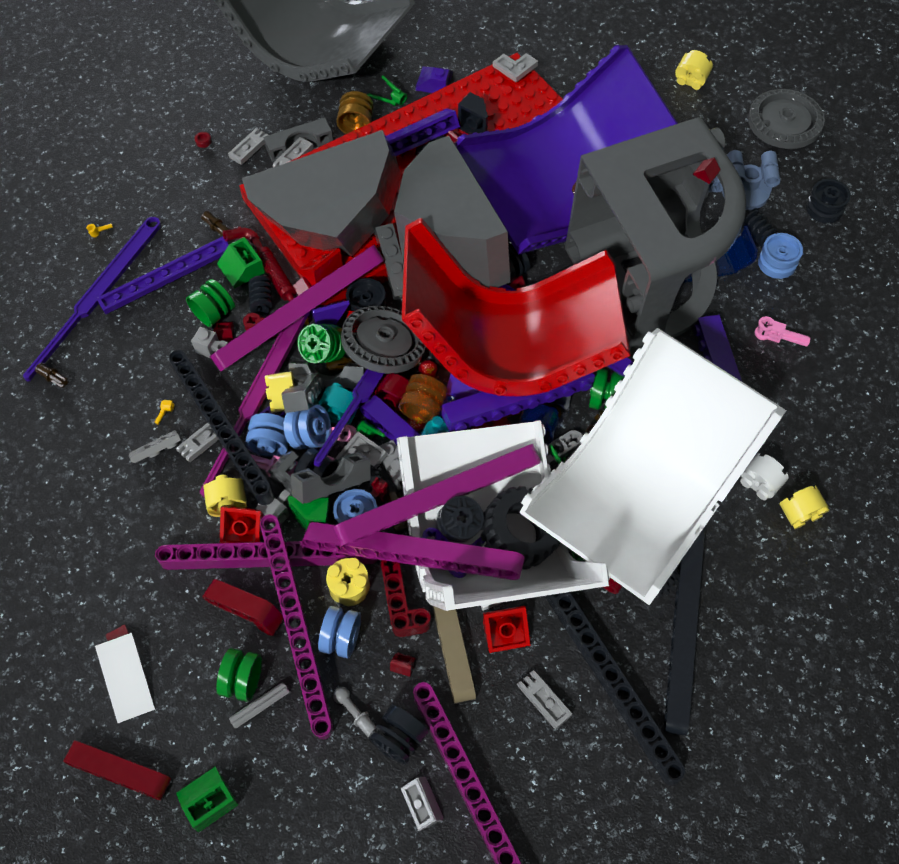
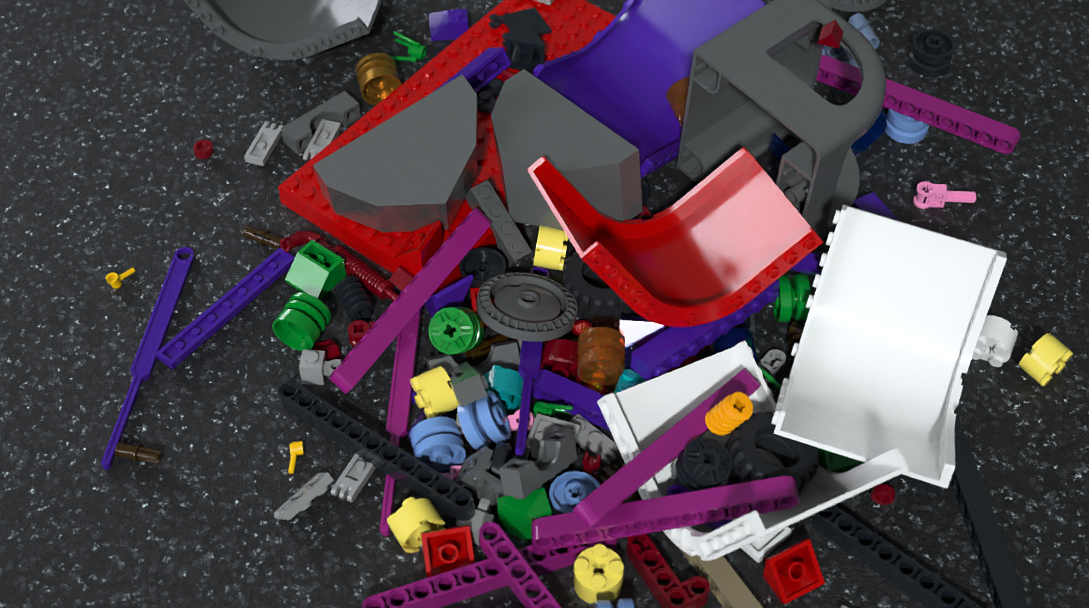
camera: 20 degrees left, 10 degrees down
(492, 92) = (527, 17): none -> black flag
(493, 483) = (729, 413): none -> light orange piece
(798, 254) = (924, 107): none -> magenta beam

